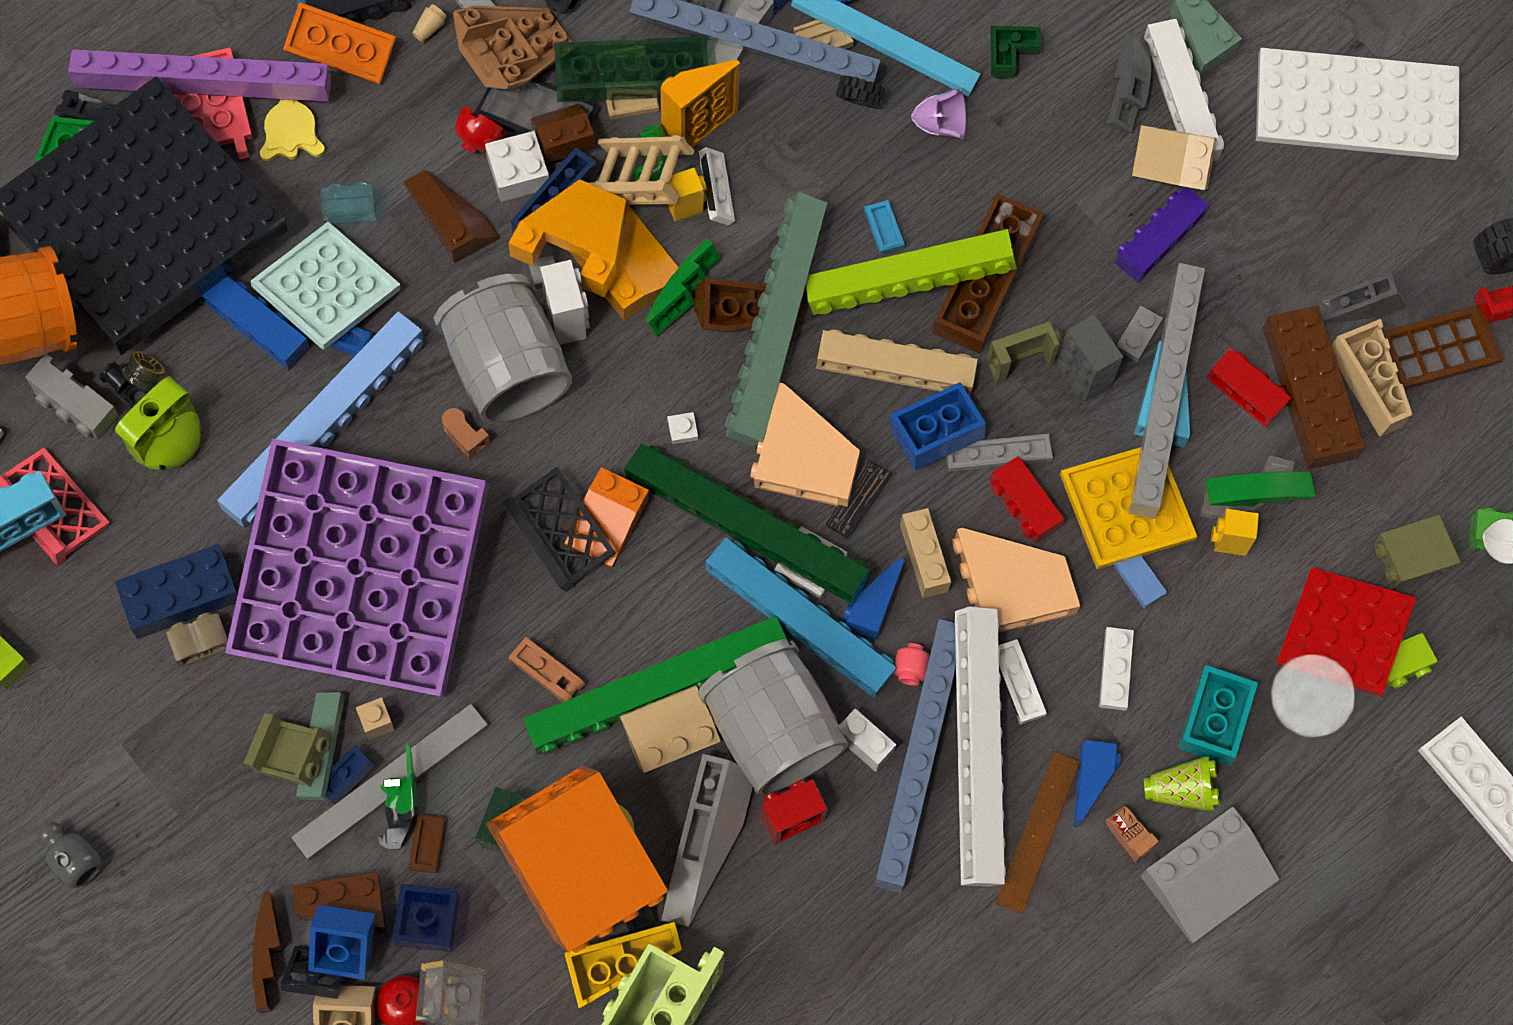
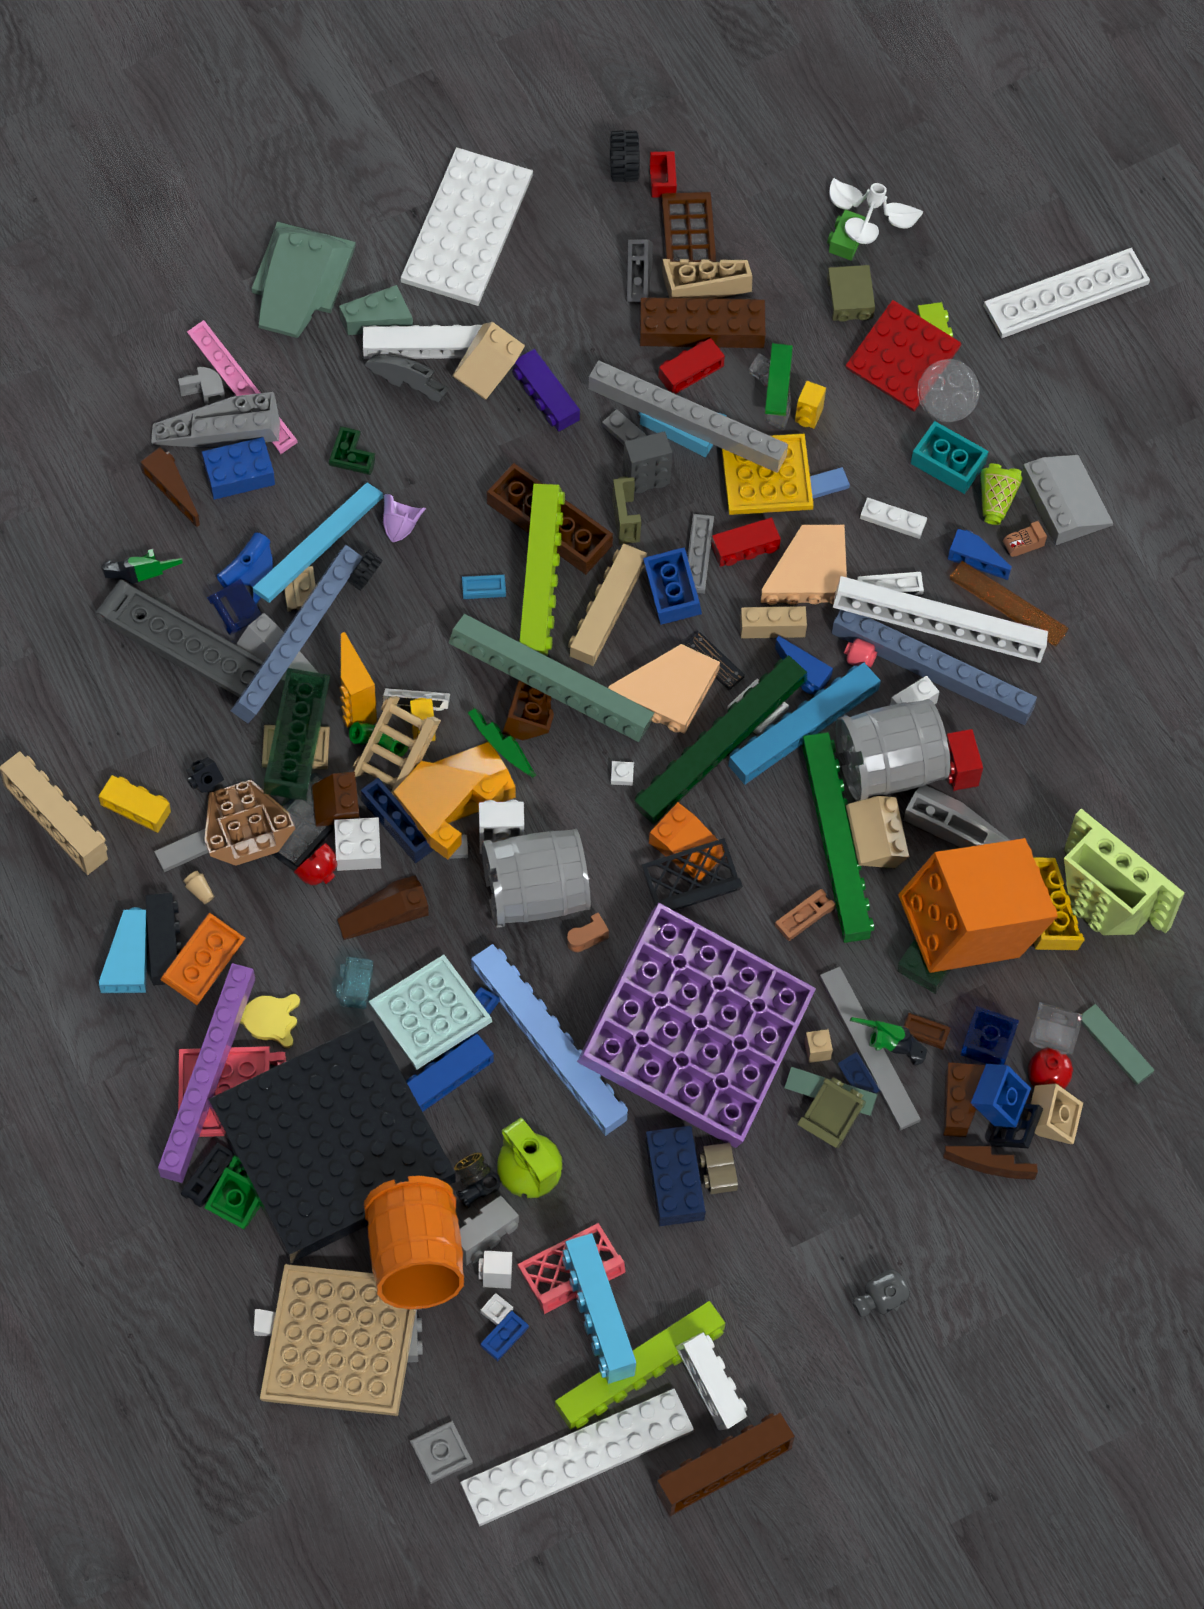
camera: 75 degrees left, 5 degrees down
(23, 421) = (496, 1269): none -> white brick

